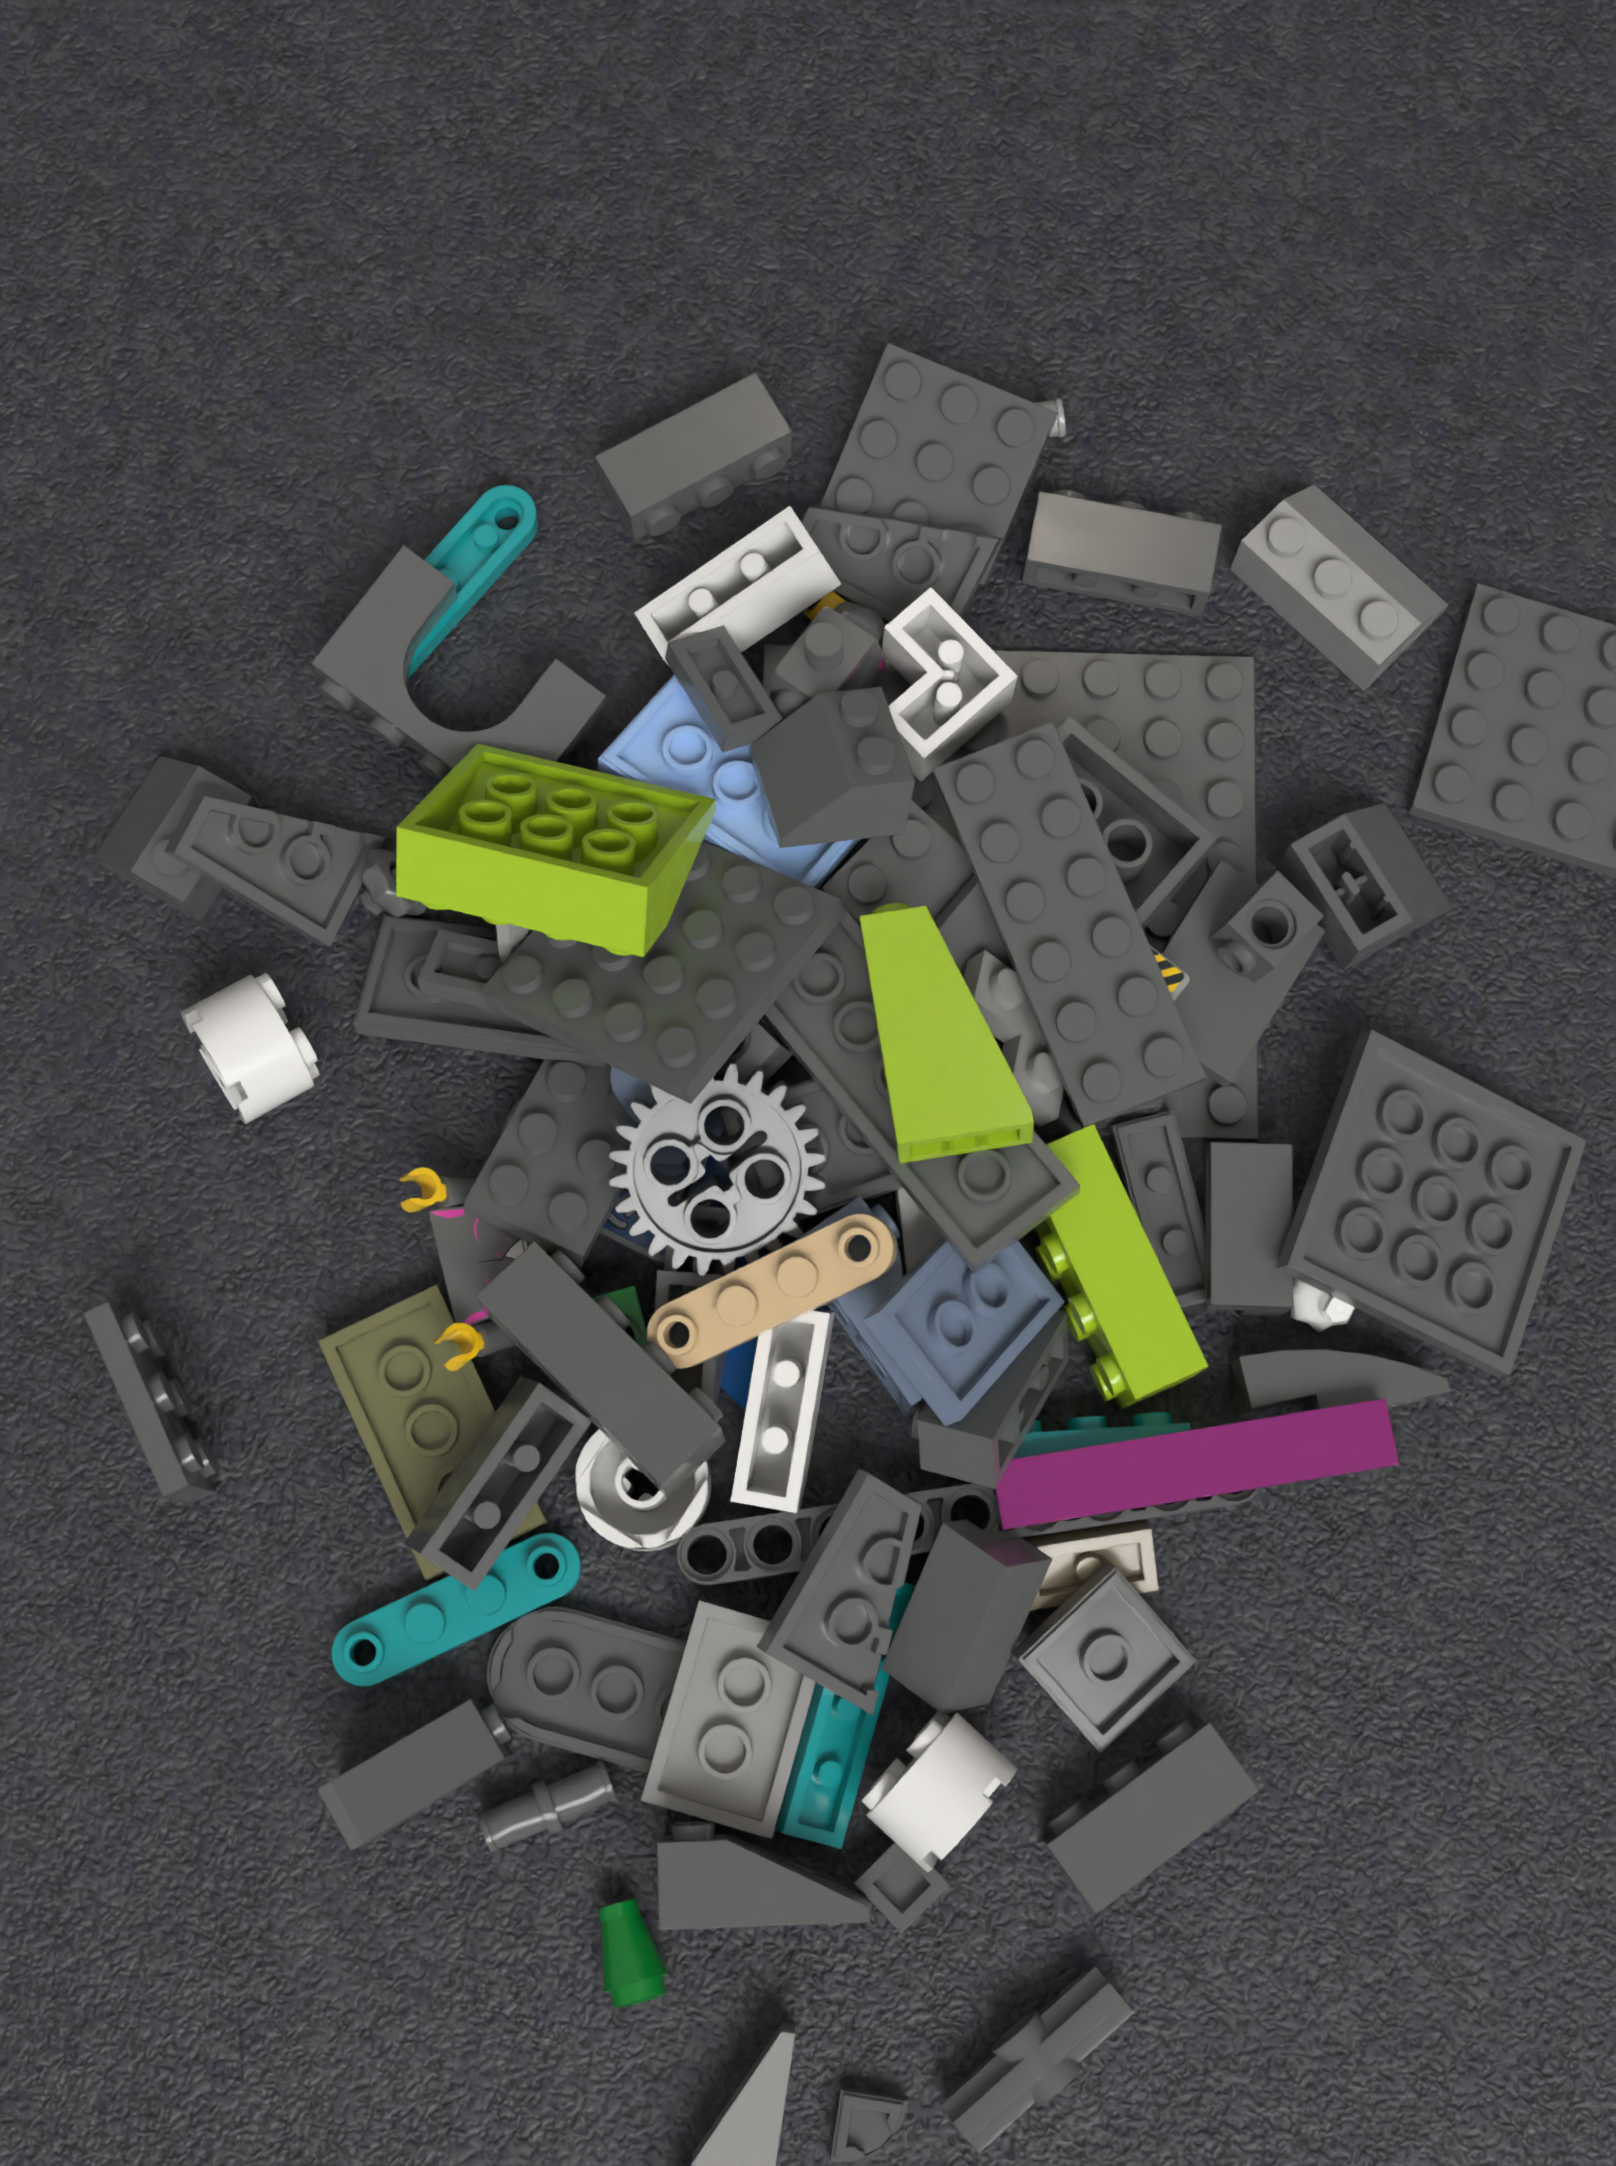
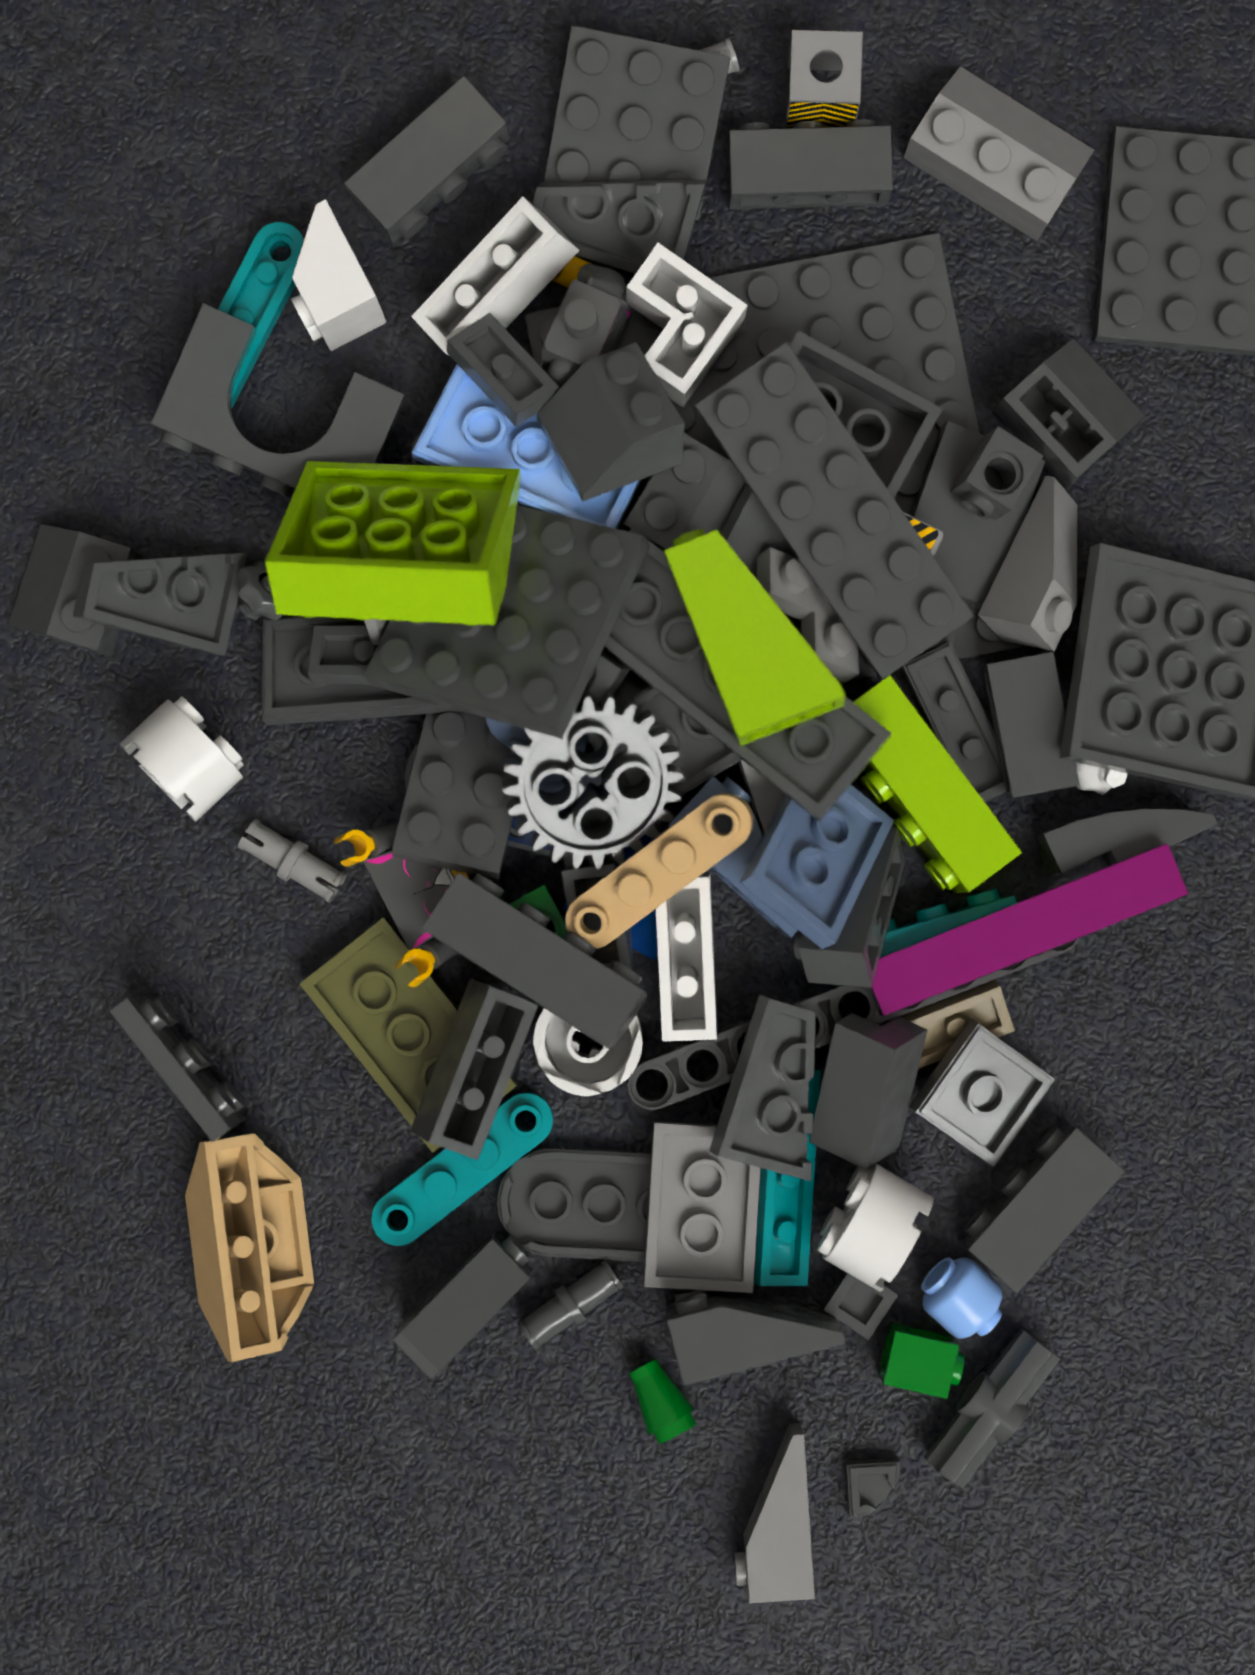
camera: 10 degrees left, 10 degrees up
(177, 1639) = (248, 1244): none -> tan wedge
(347, 1197) = (292, 860): none -> light grey pin
(554, 564) = (332, 286): none -> white slope
(960, 1976) = (920, 1361): none -> green brick
(1028, 1907) = (962, 1297): none -> light blue head
(1157, 455) = (819, 101): none -> light grey piece
(1293, 1055) = (1038, 579): none -> light grey slope

